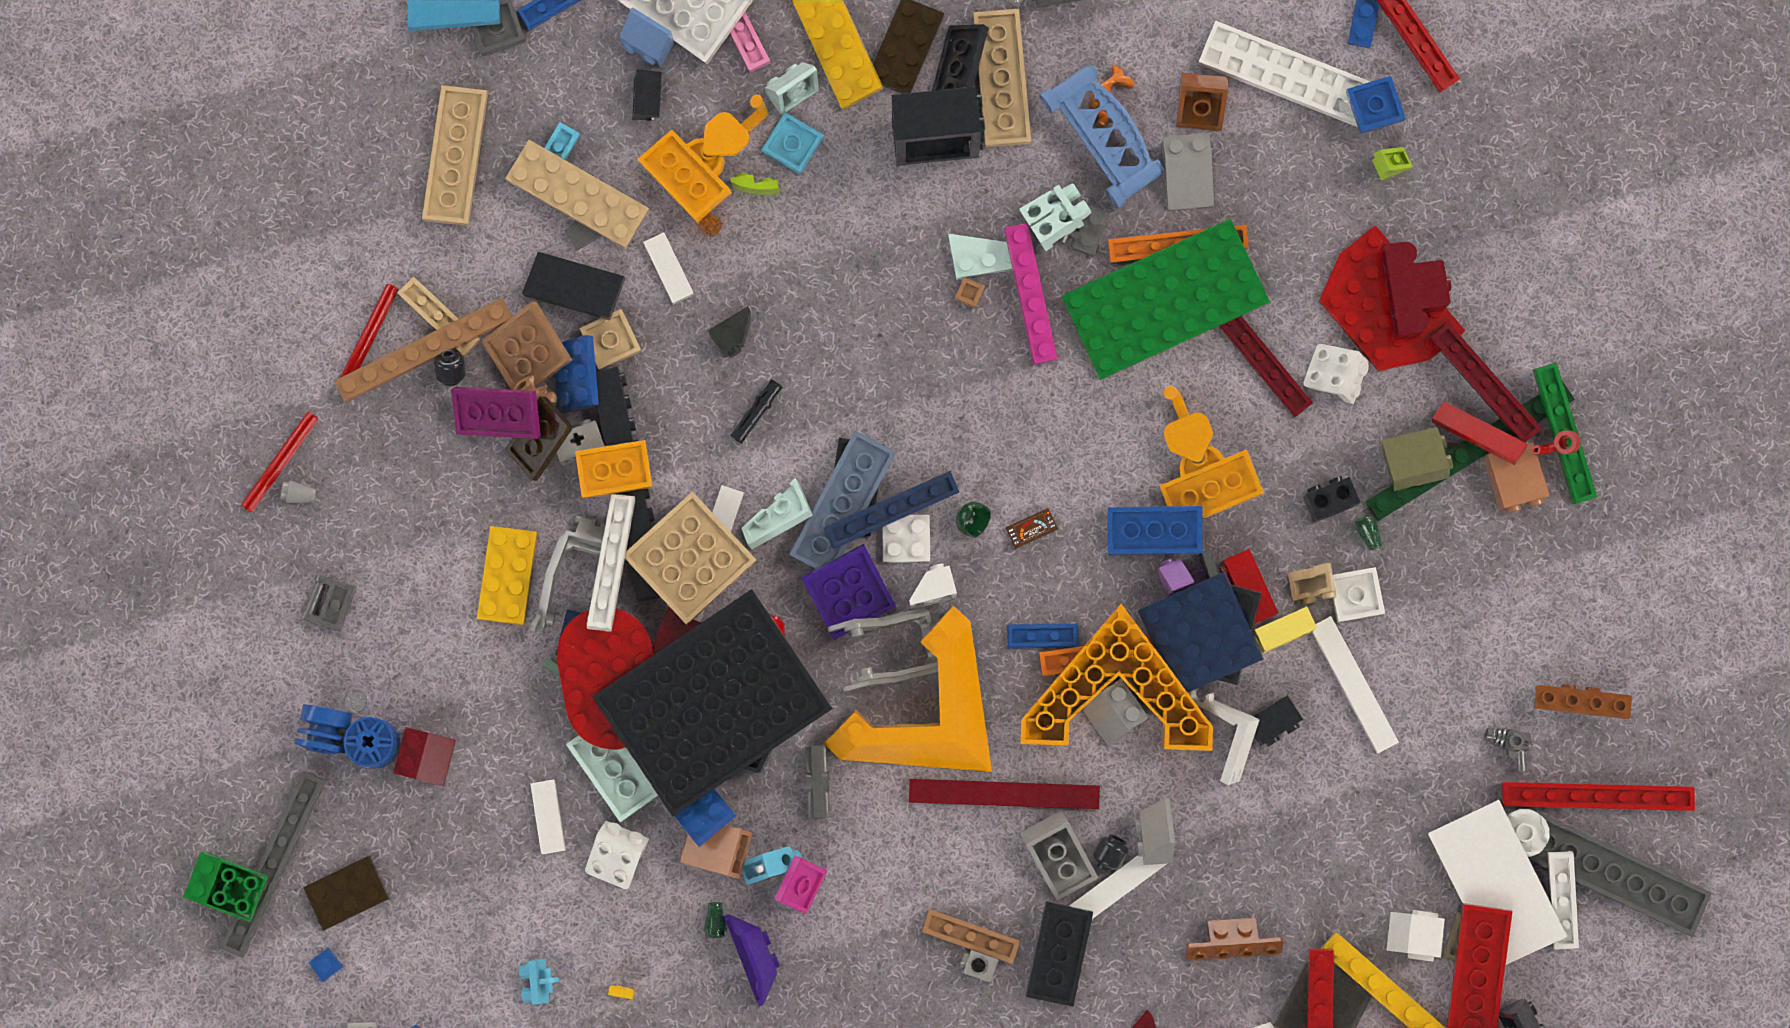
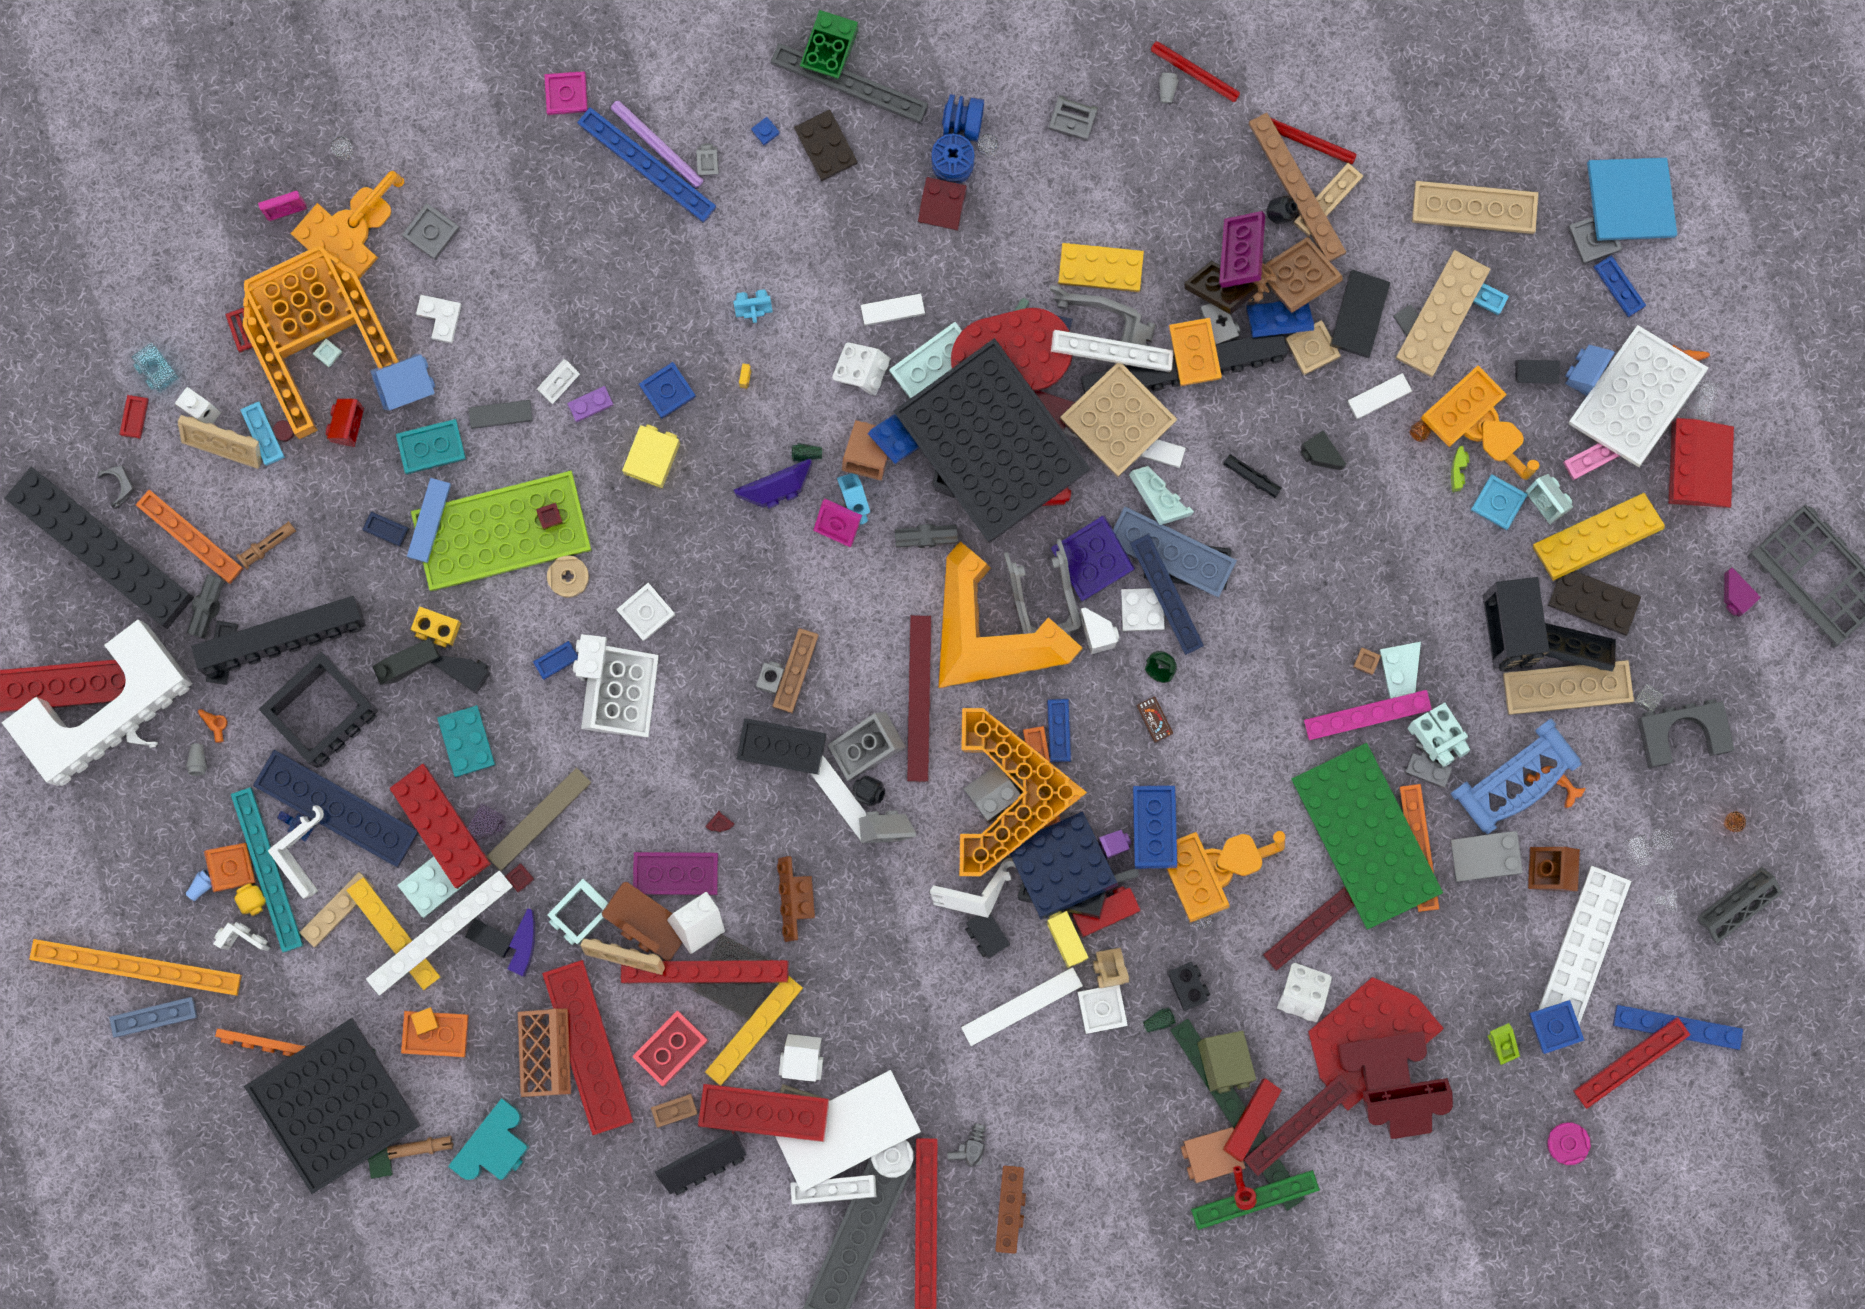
camera: 90 degrees right, 0 degrees up
(1465, 262) = (1408, 1107): none -> dark red brick
(1496, 99) = (1568, 1143): none -> dark pink tile

